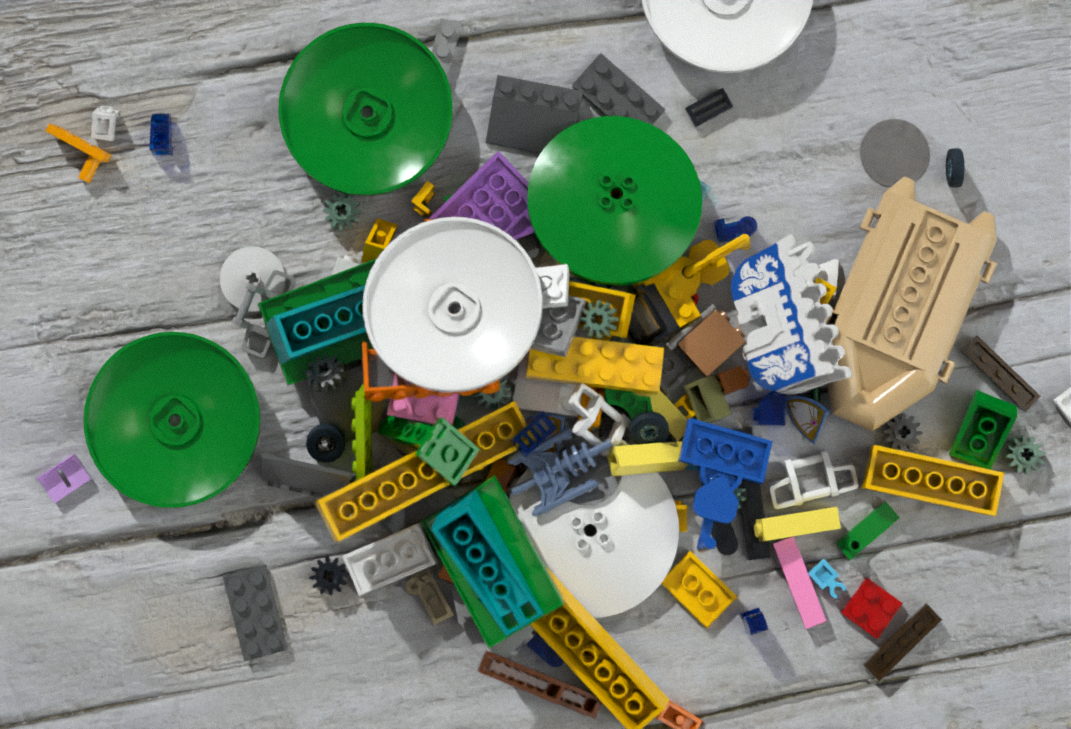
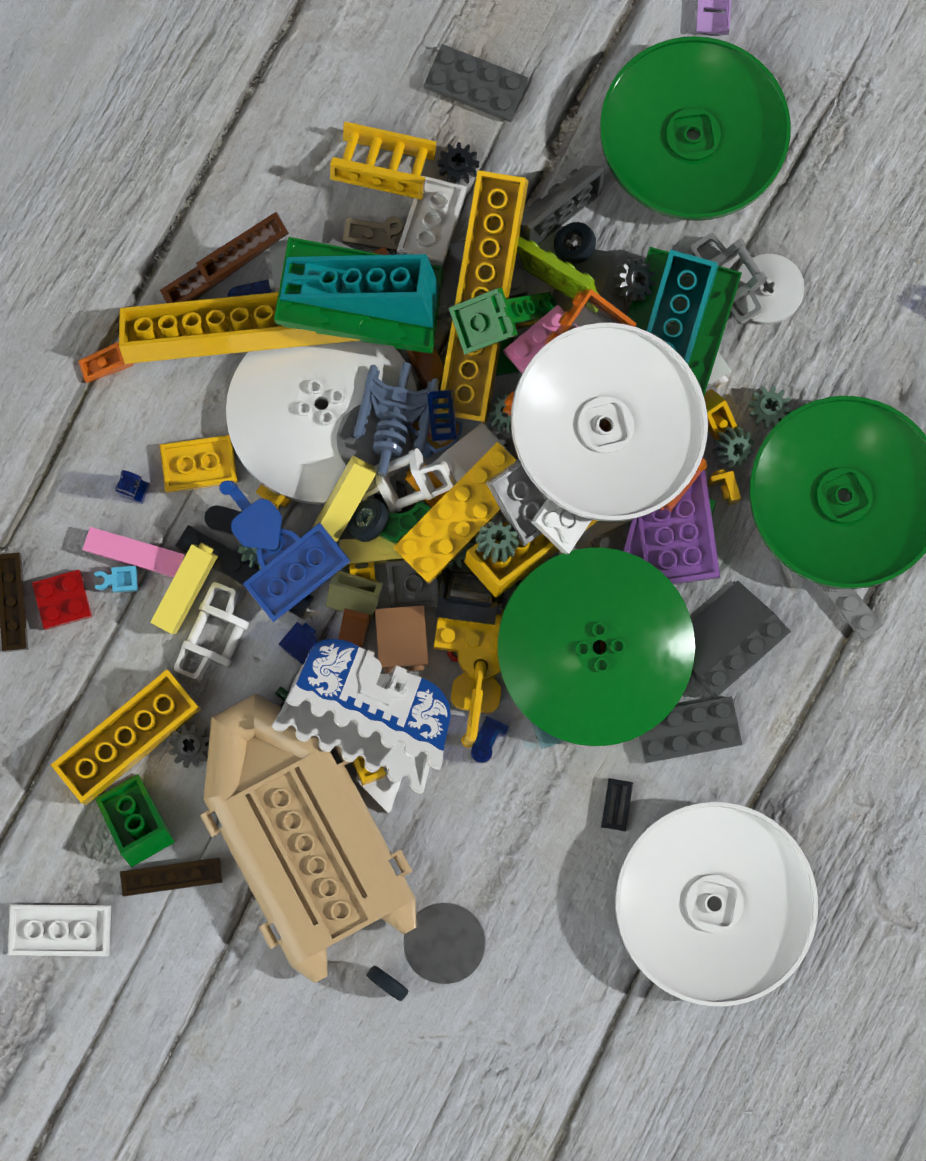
camera: 125 degrees right, 5 degrees down
(391, 629) = (377, 177): none -> yellow fence
(392, 214) = (741, 442): none -> sand green gear
(689, 328) = (430, 630): light grey bar -> none
(806, 415) = (270, 672): shield -> none
(867, 530) = (130, 648): green piece -> none
(1028, 447) = (83, 830): sand green gear -> none

